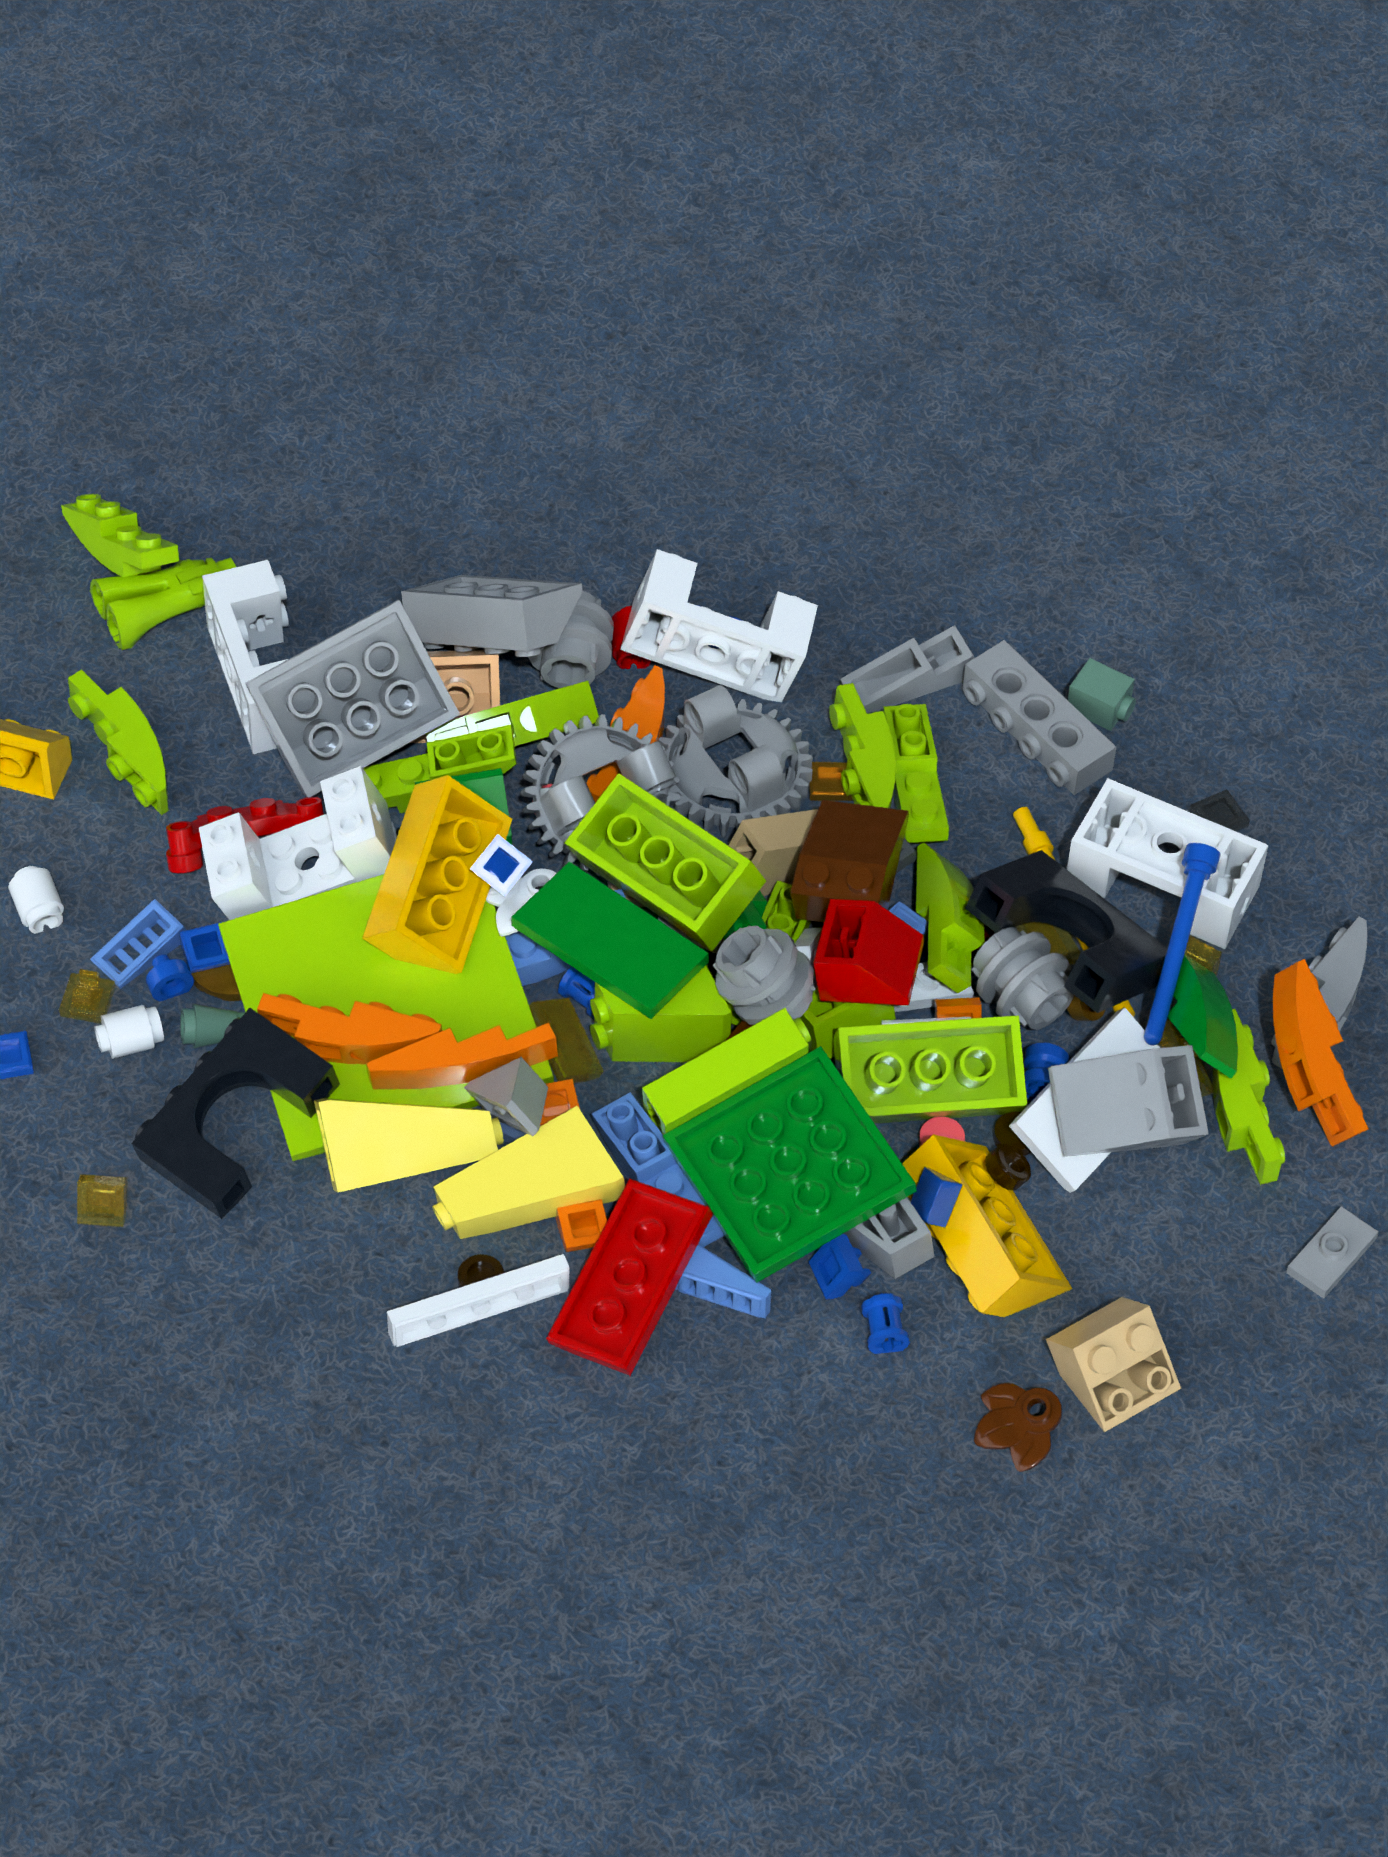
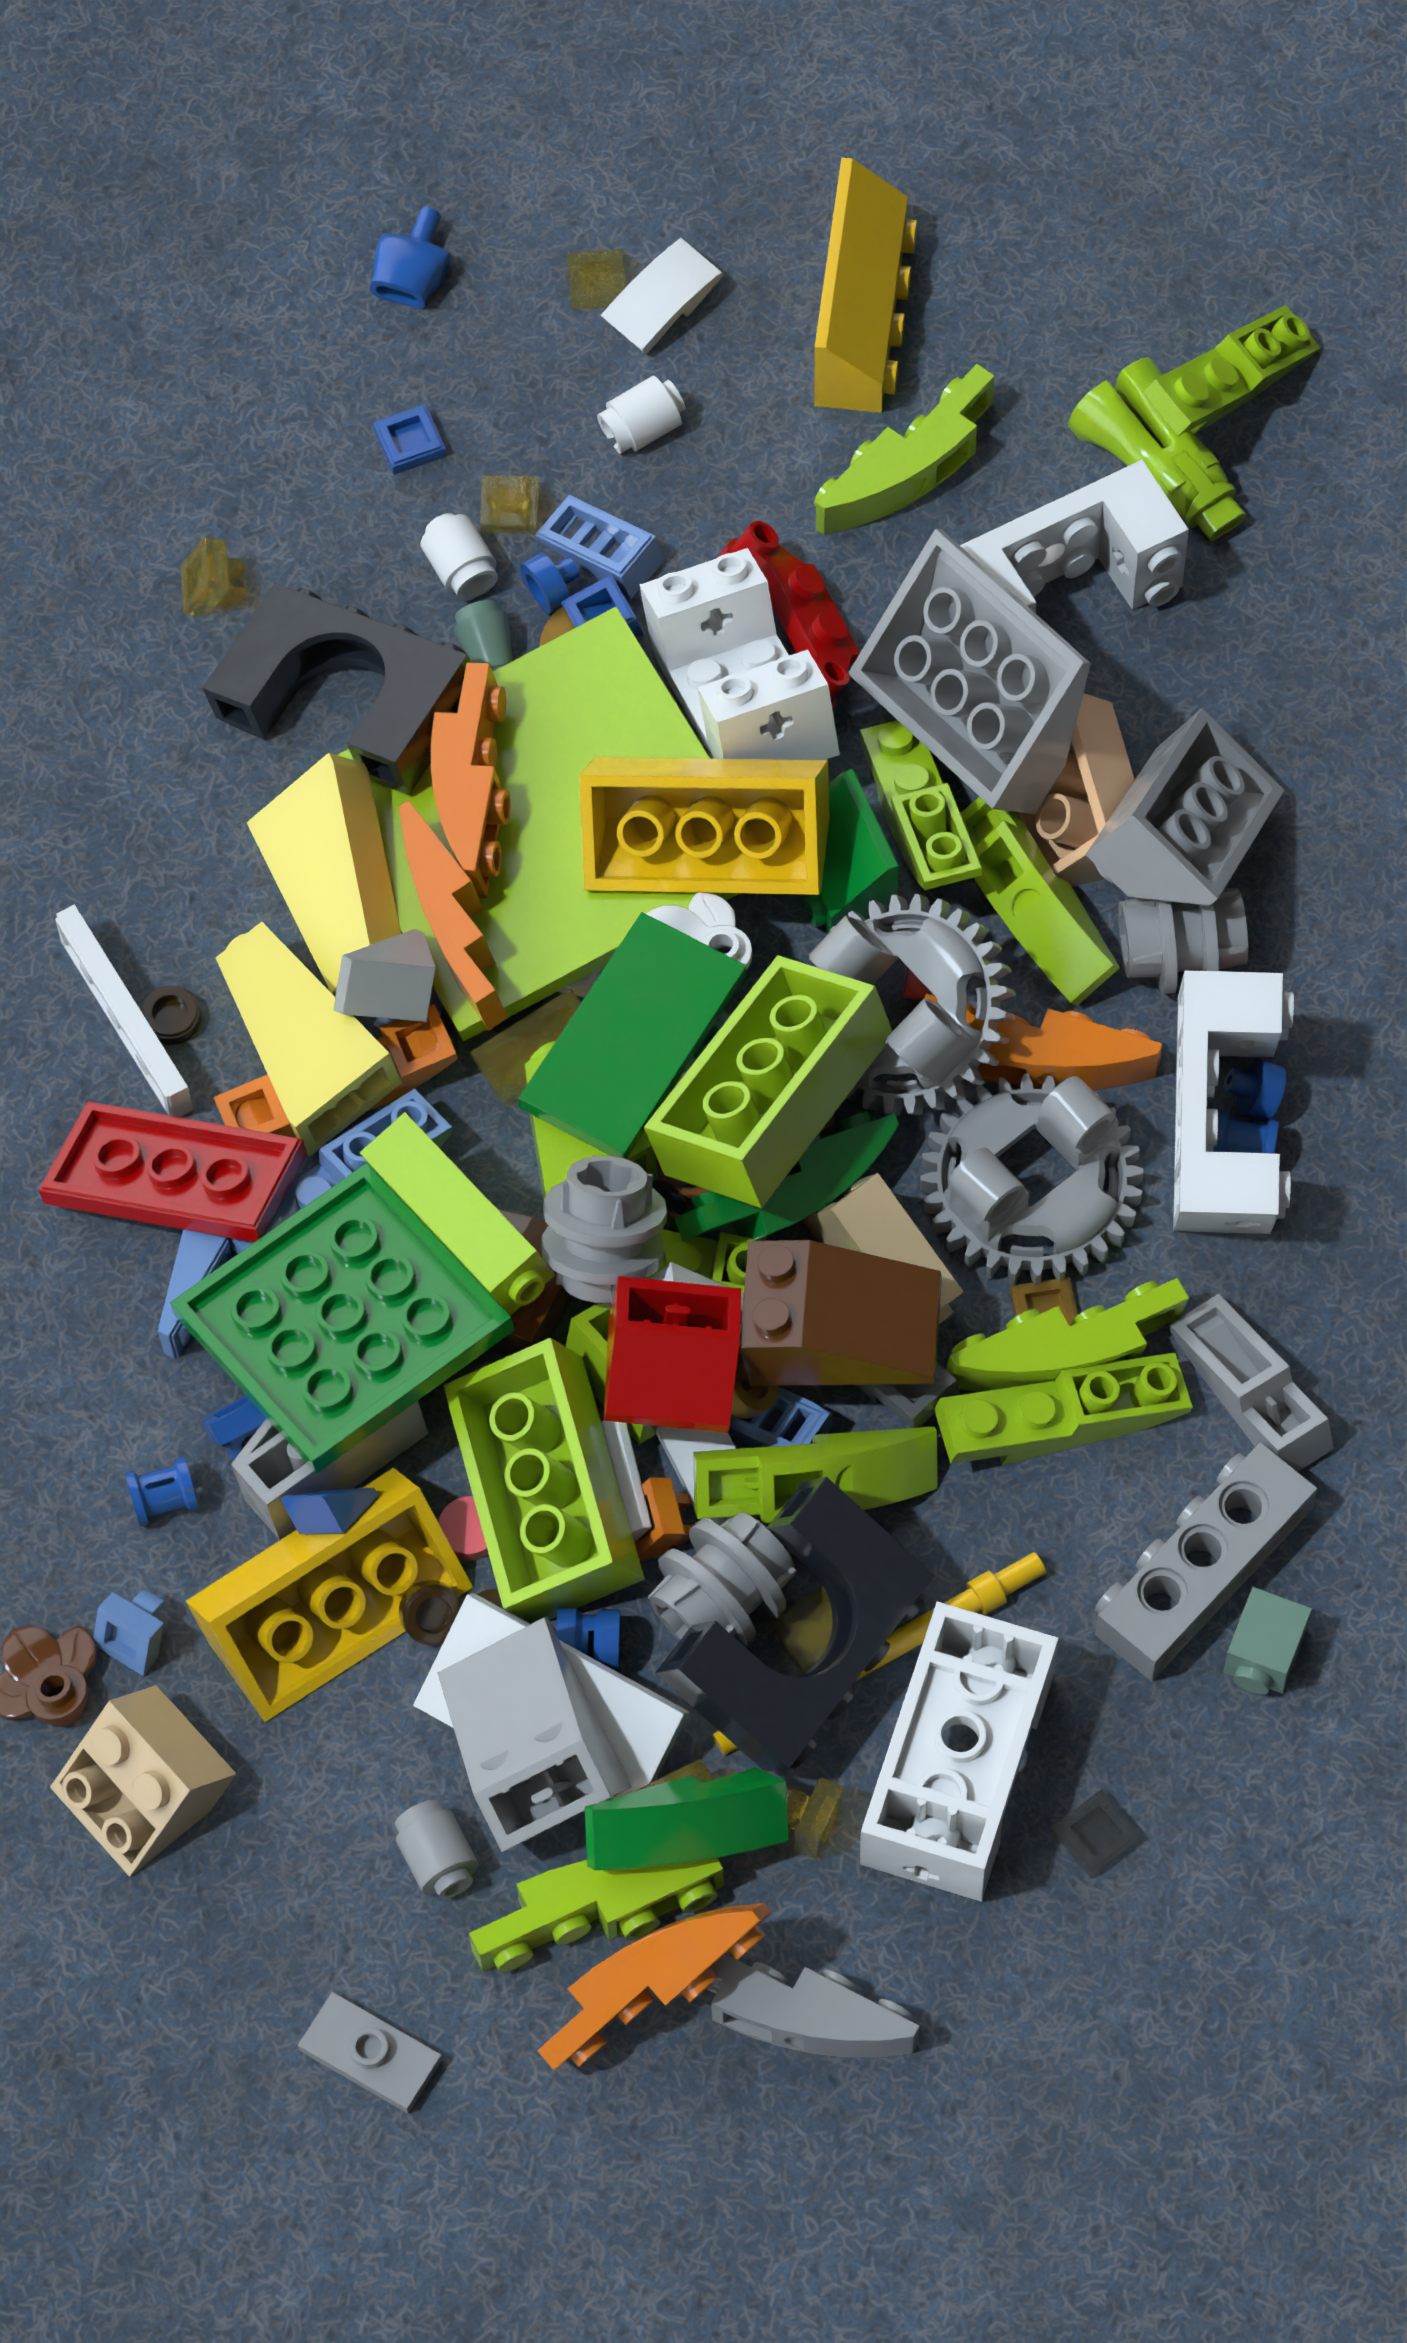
camera: 85 degrees right, 10 degrees up
(501, 865) = (736, 892): slope -> none
(996, 1354) = (130, 1629): none -> medium blue tile
(1190, 1186) = (436, 1849): none -> light grey brick
(1199, 863) = (913, 1769): blue piece -> none

